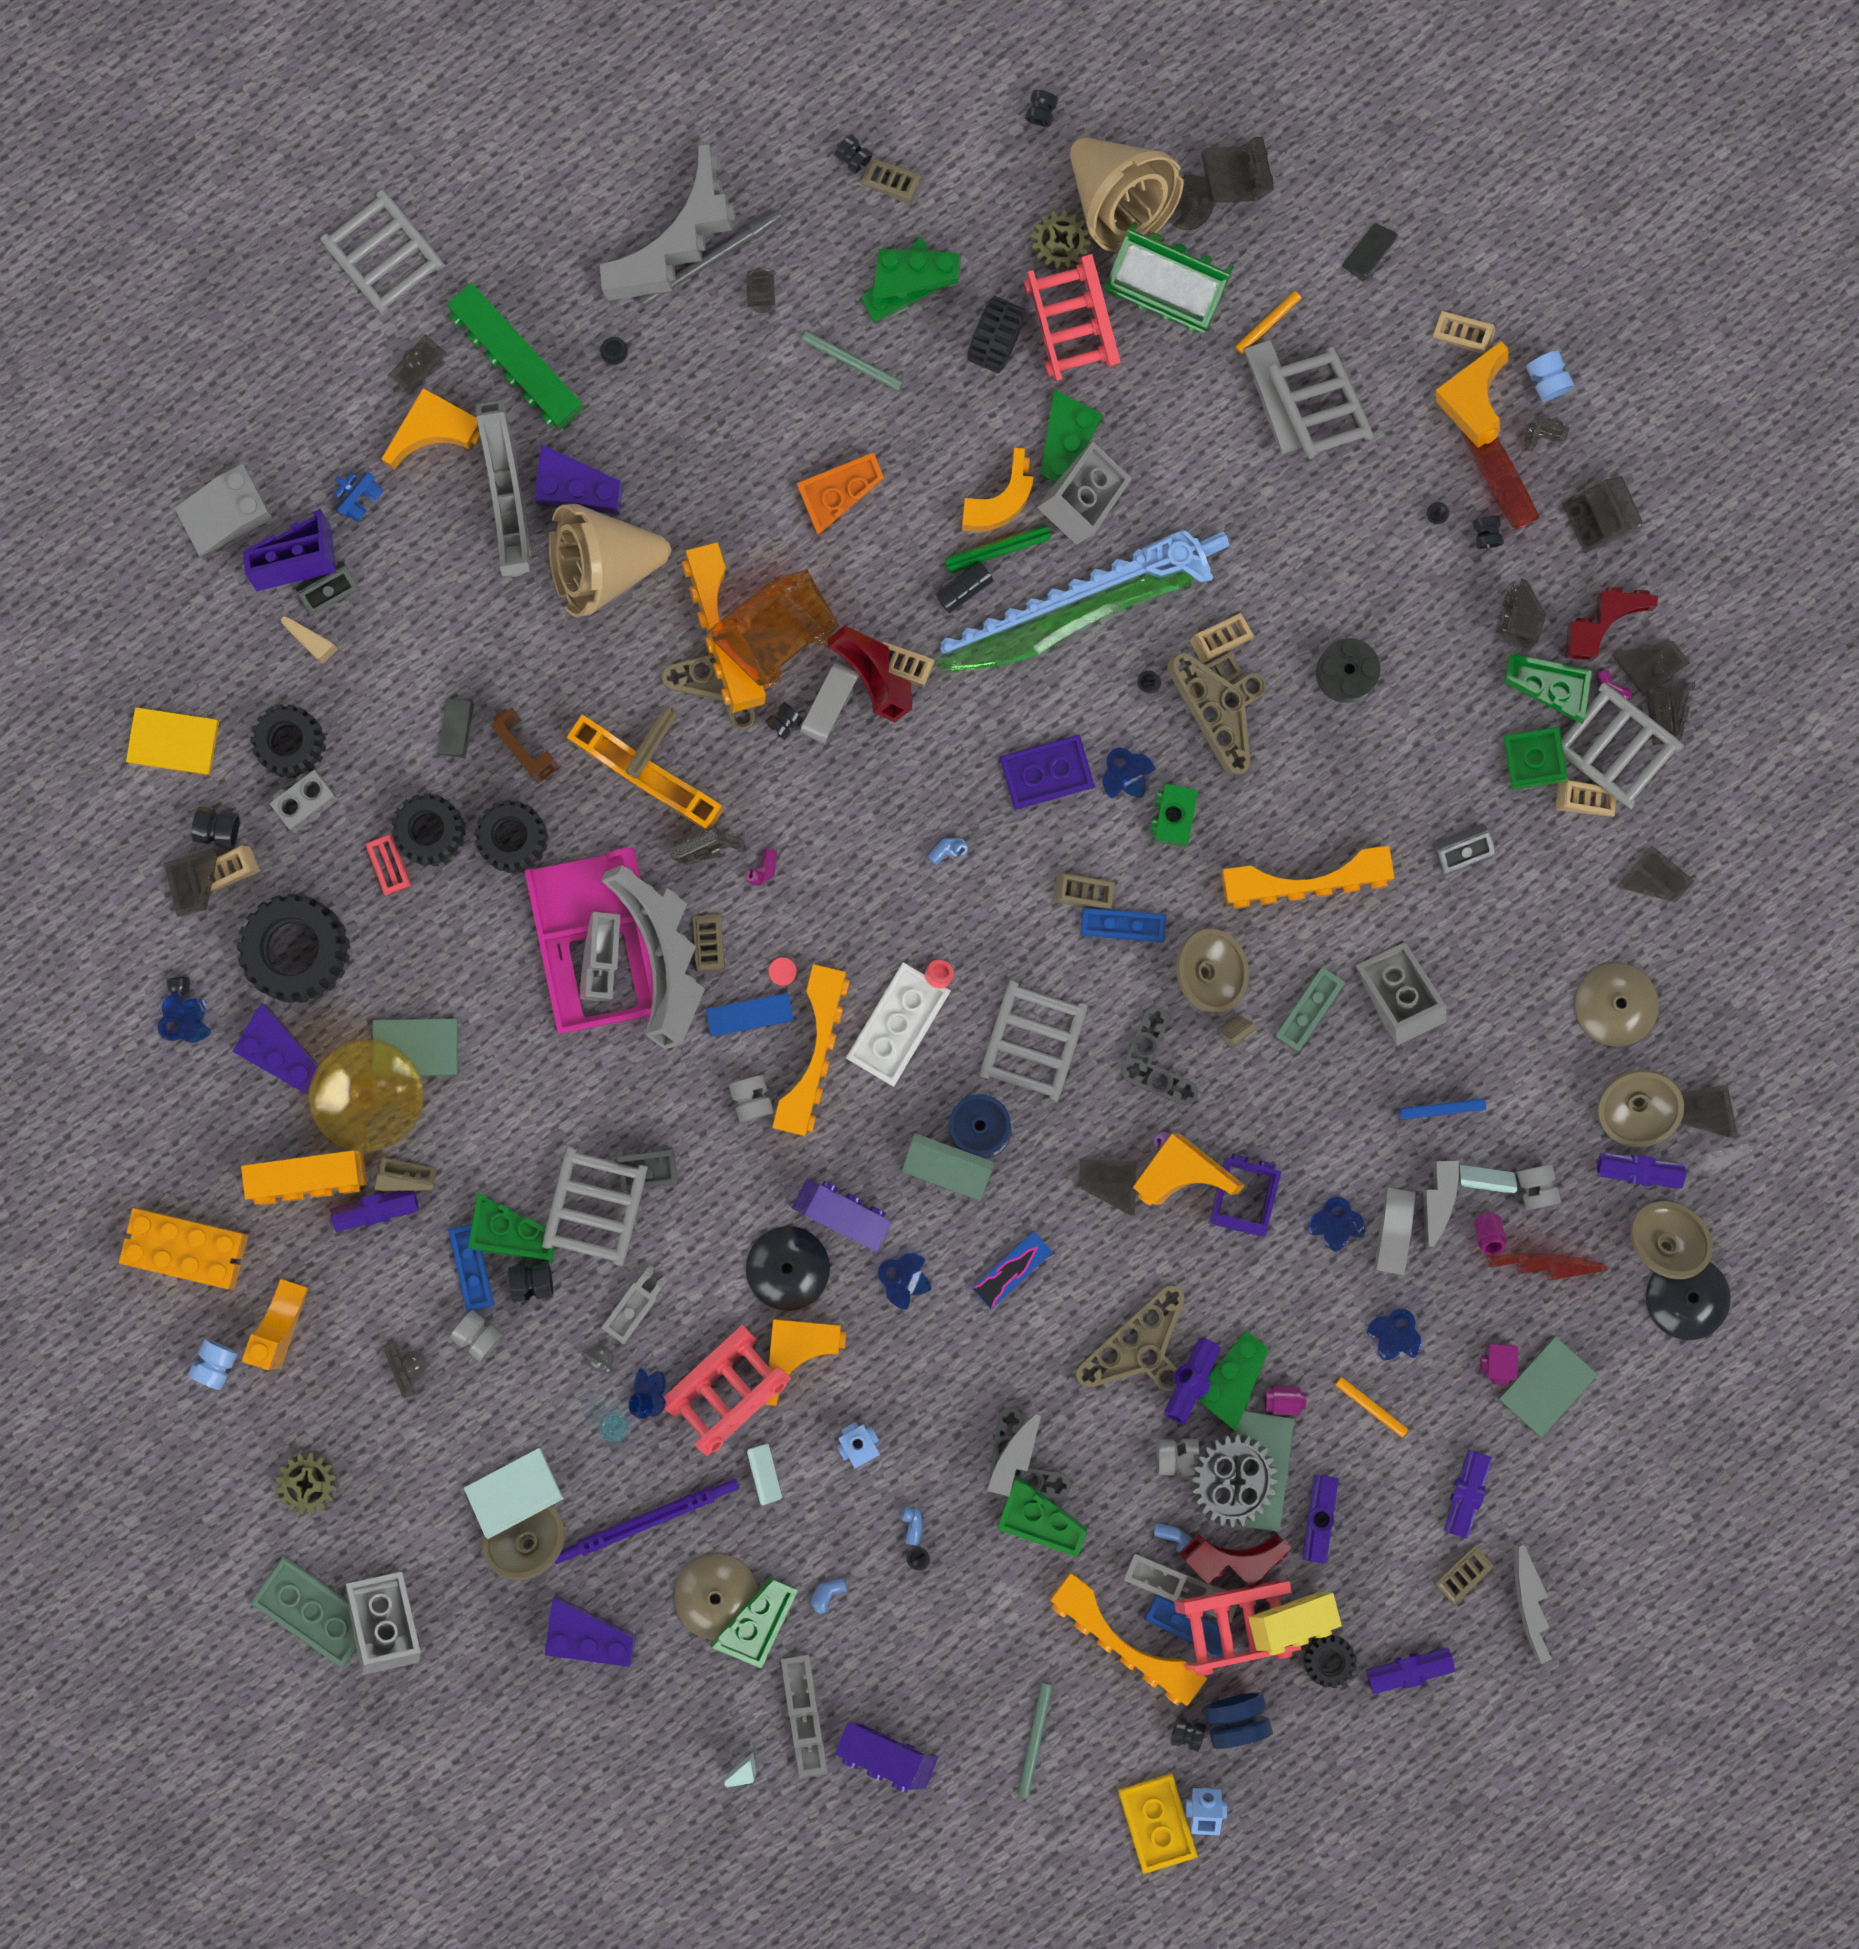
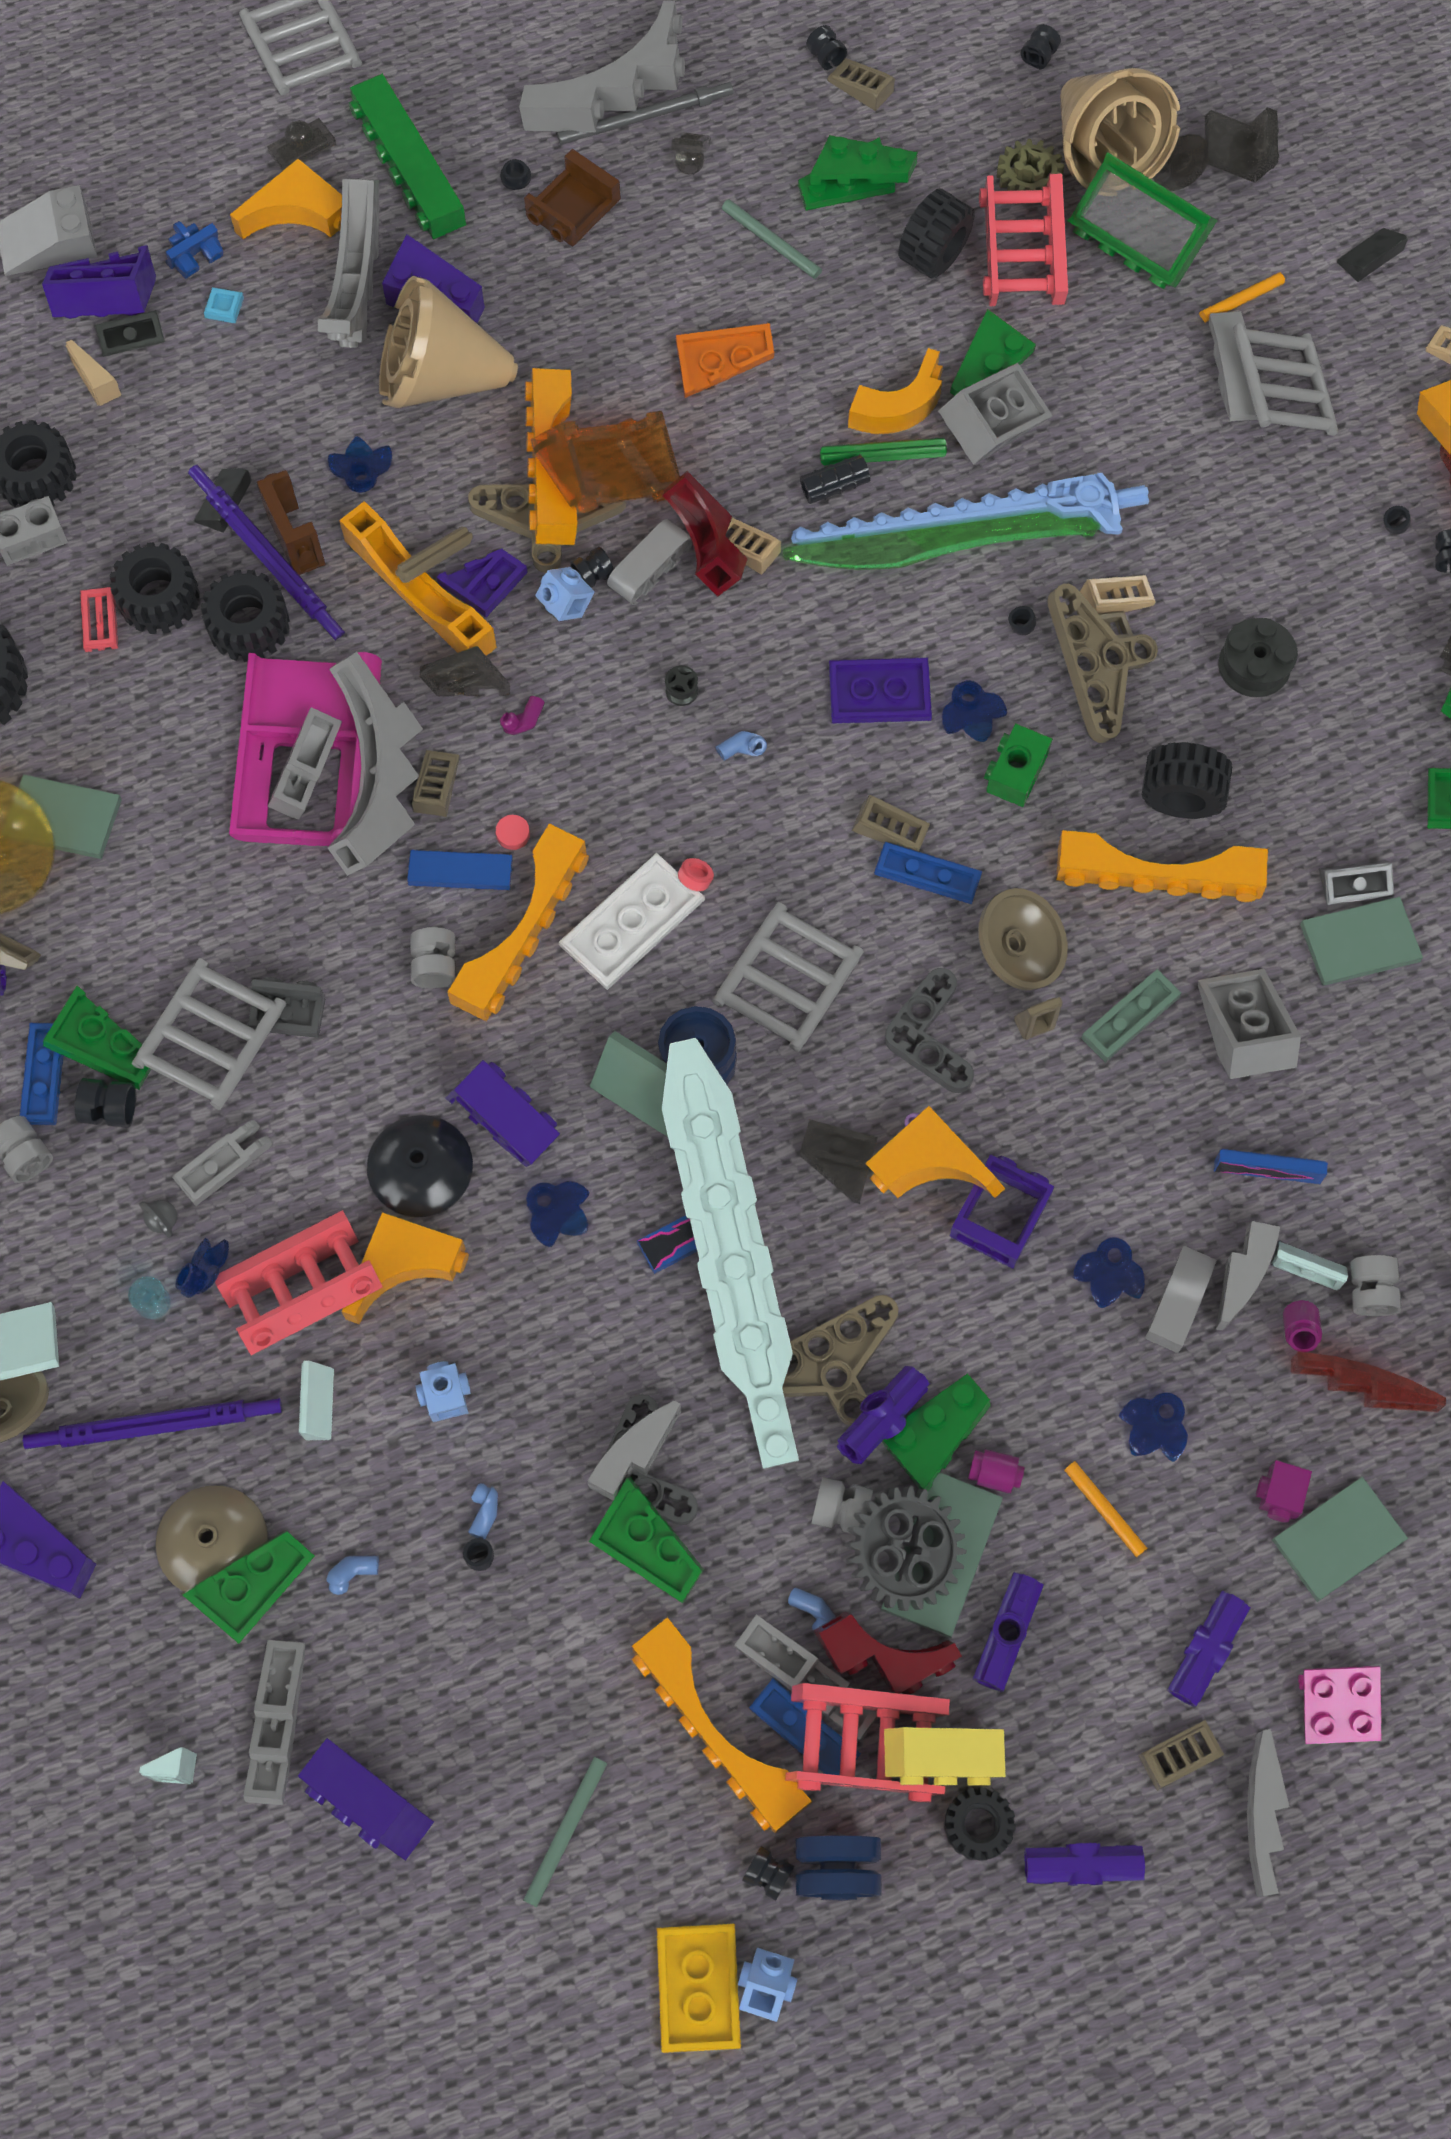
camera: 15 degrees right, 15 degrees down
(399, 541) = (223, 305): none -> medium azure tile
(510, 774) = (266, 552): none -> dark purple axle
(560, 664) = (359, 461): none -> clear blue plate
(671, 366) = (574, 199): none -> reddish brown panel
(698, 753) = (485, 580): none -> dark purple wing
(768, 752) = (564, 593): none -> light blue brick
(885, 805) = (684, 678): none -> pearl dark grey wheel
(1044, 1278) = (729, 1243): none -> light aqua plate
(1313, 803) = (1187, 780): none -> black tyre
(1476, 900) = (1361, 941): none -> sand green tile
(1571, 1510) = (1341, 1704): none -> hinge

